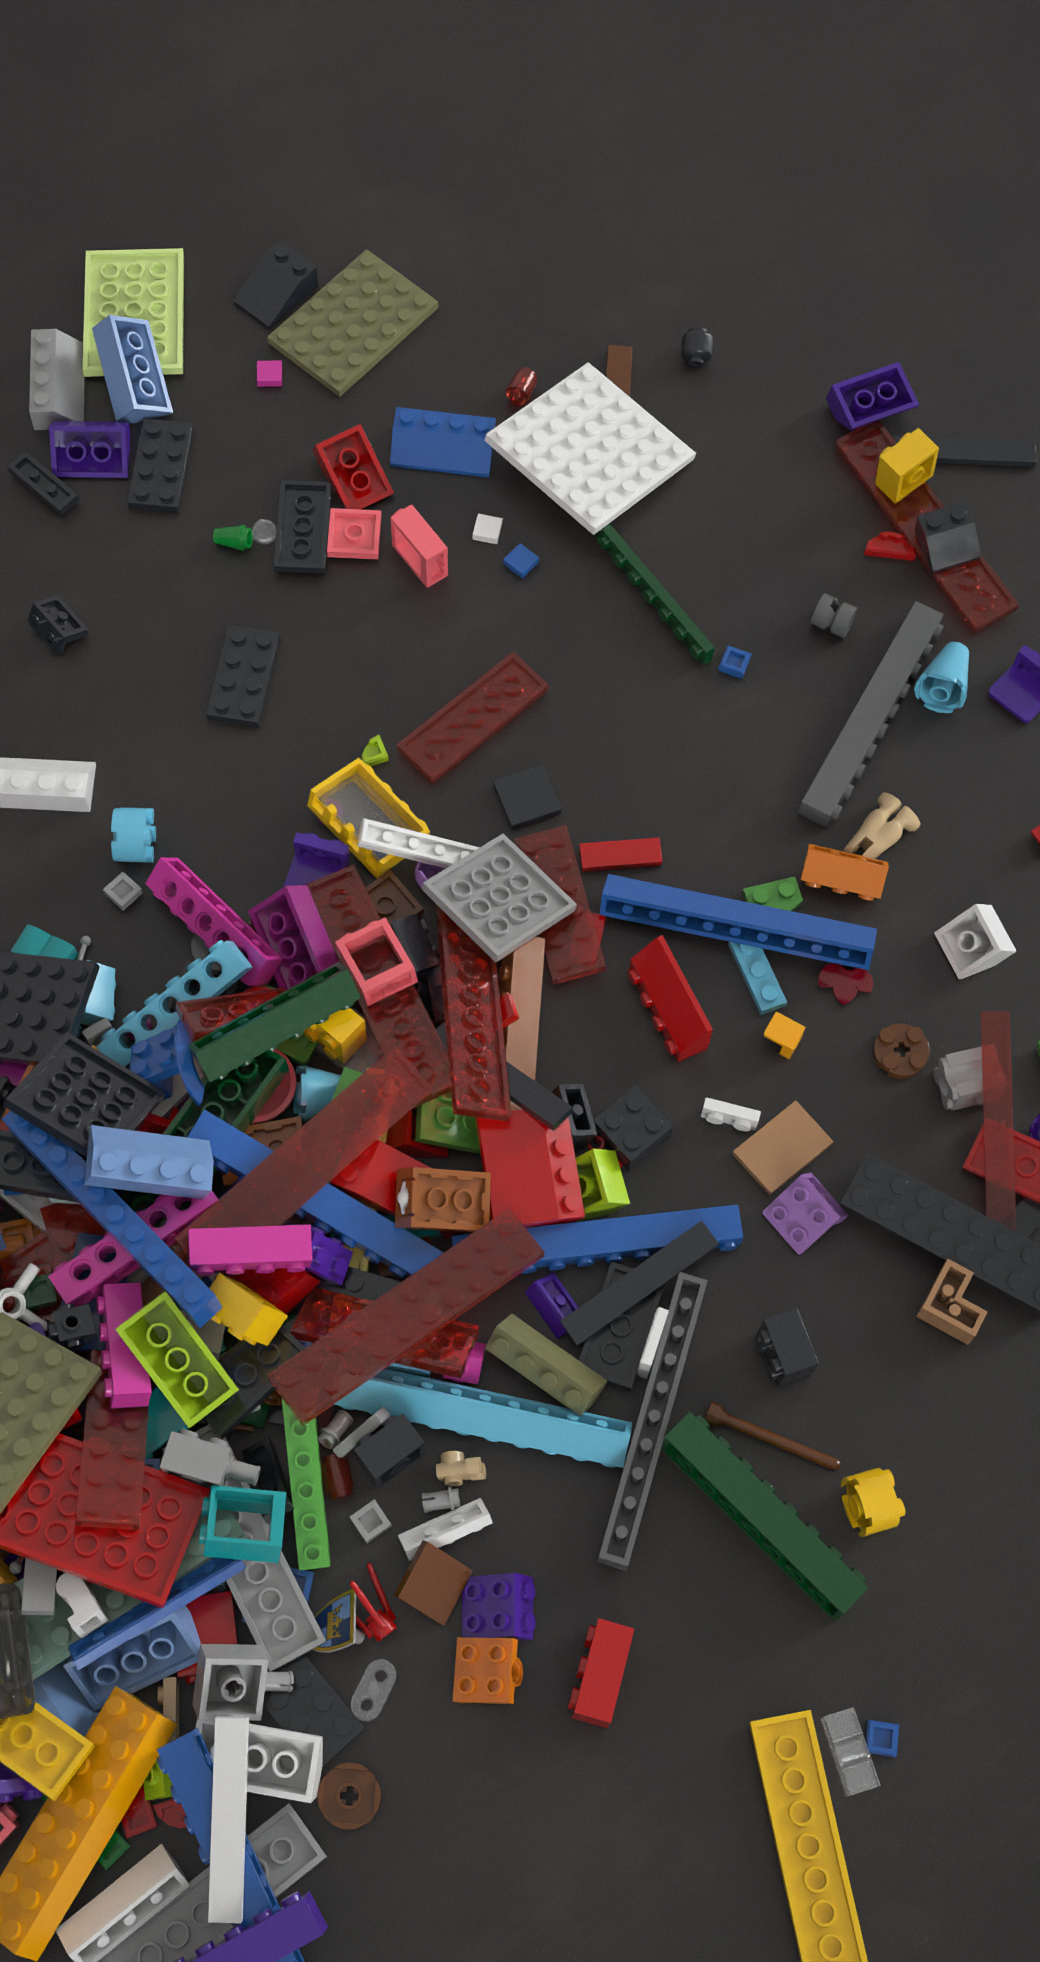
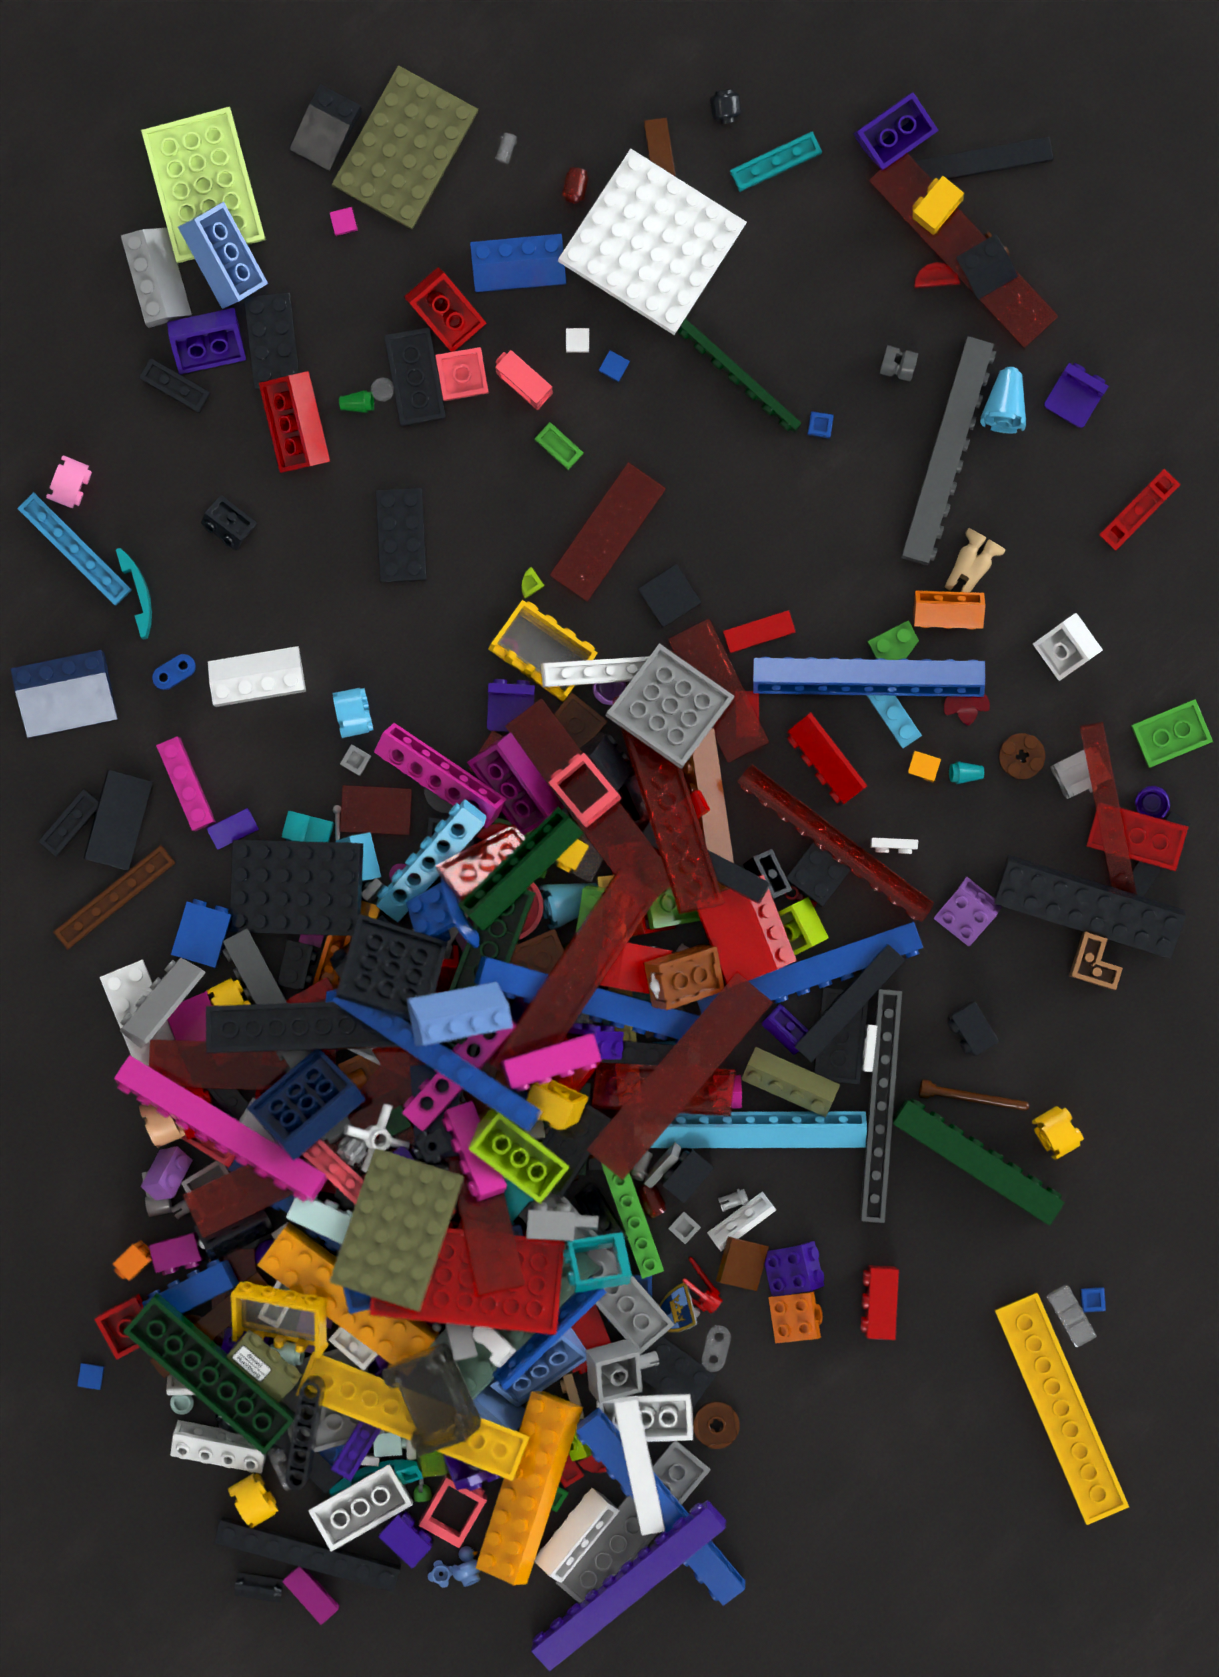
camera: 10 degrees left, 20 degrees up
(131, 948) = (376, 810): none -> clear red plate
(159, 537) = (294, 422): none -> red slope
(441, 624) = (558, 446): none -> bright green tile
(456, 1468) = (739, 1175): tan plate -> none
(461, 336) = (506, 147): none -> clear pin
(666, 1103) = (831, 839): none -> clear red plate
(738, 409) = (776, 161): none -> teal tile
(782, 1147) = (940, 860): medium nougat tile -> none
(830, 1053) = (965, 772): none -> teal cone

